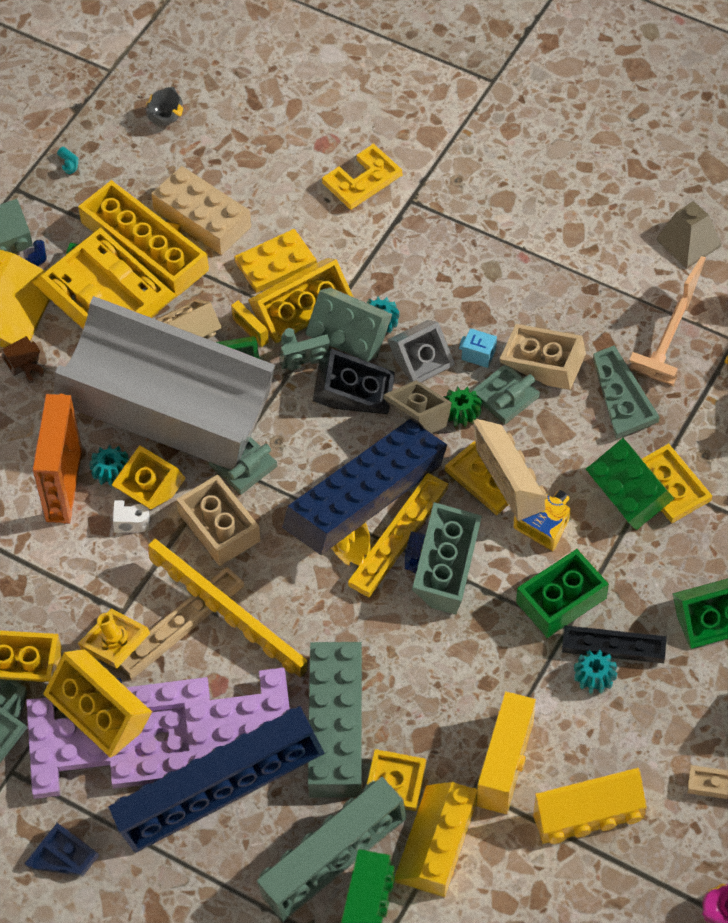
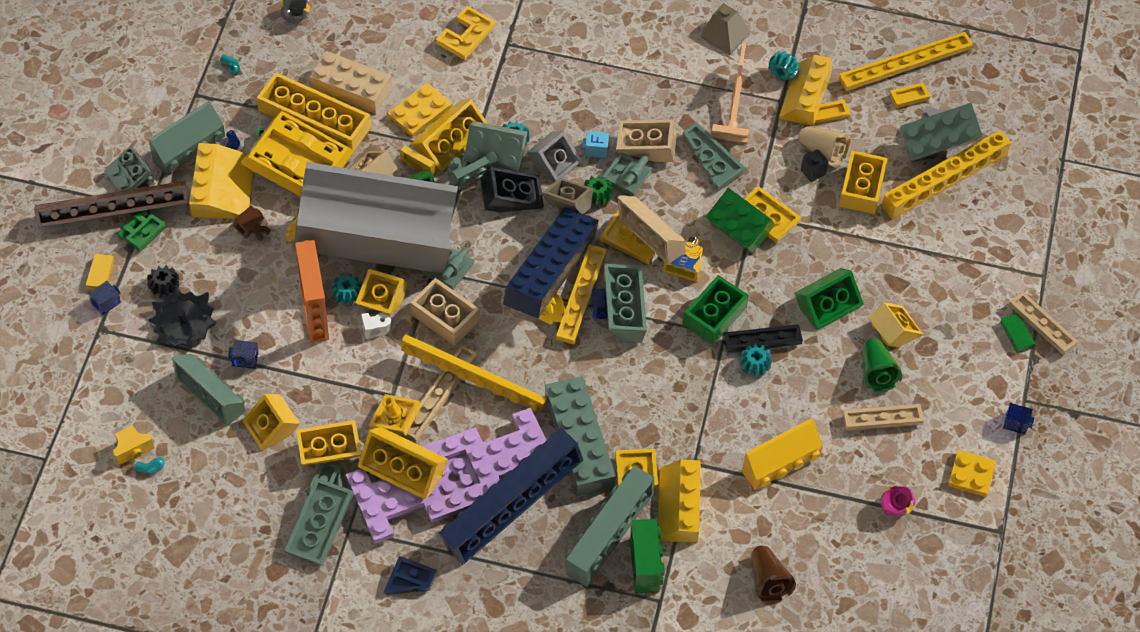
camera: 20 degrees left, 0 degrees up
(506, 753) = (712, 430): yellow brick -> none

